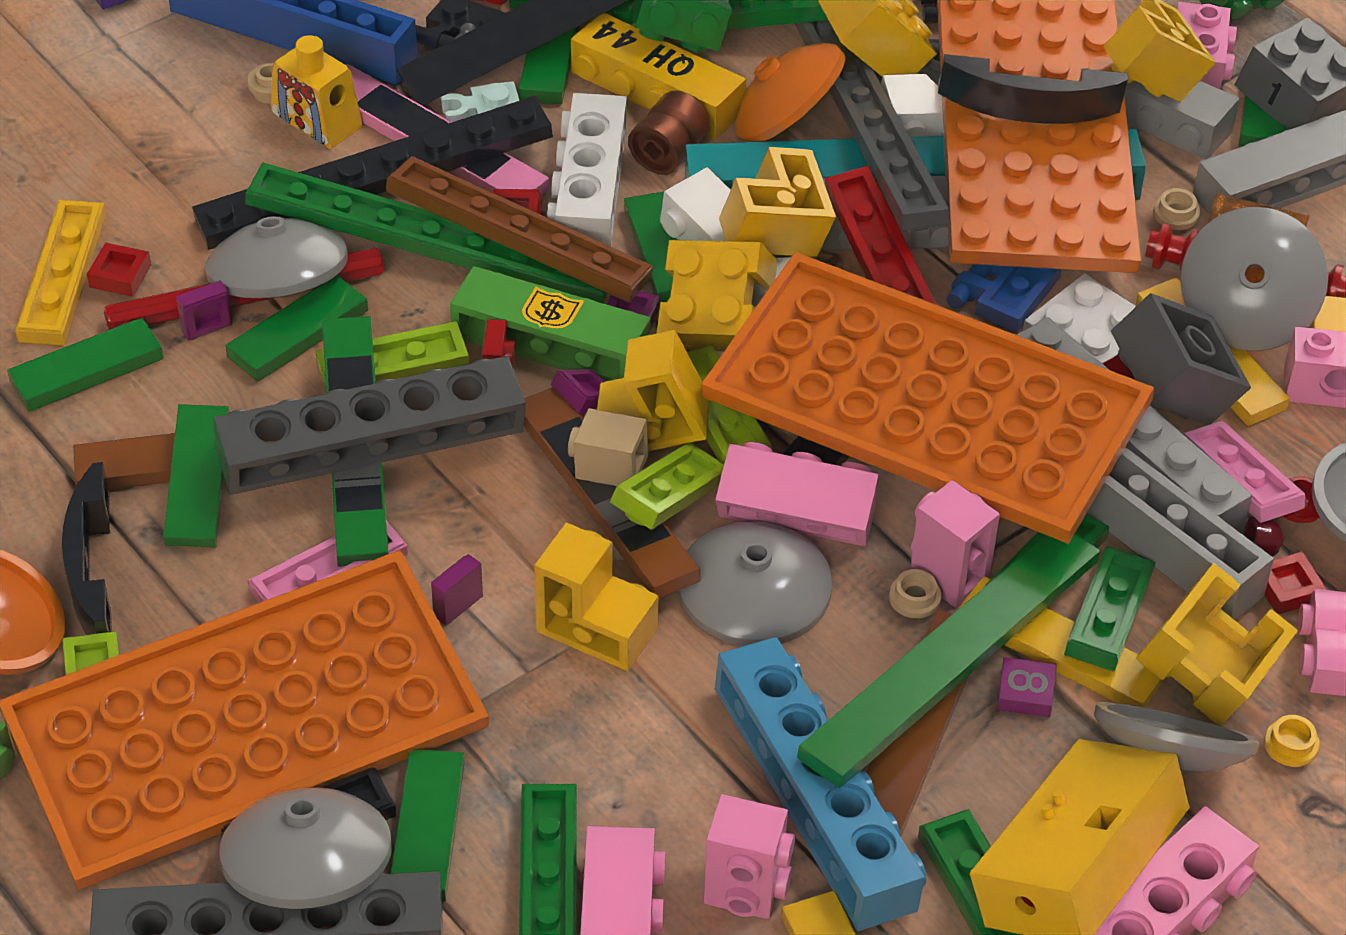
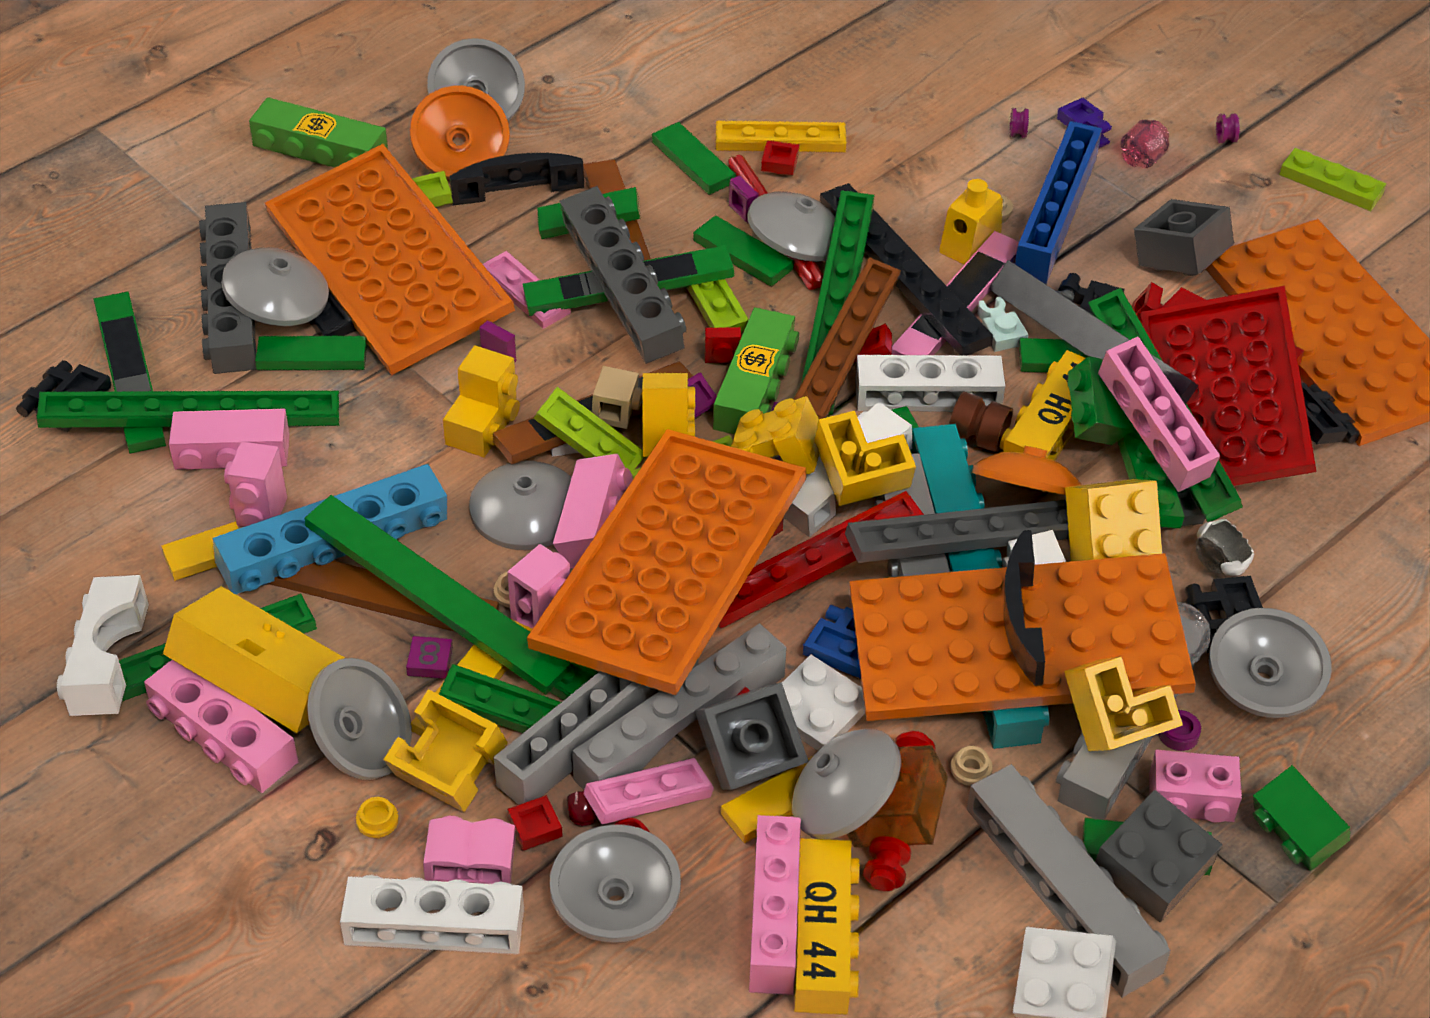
camera: 85 degrees right, 0 degrees up
(108, 47) = (1019, 122): none -> magenta bush

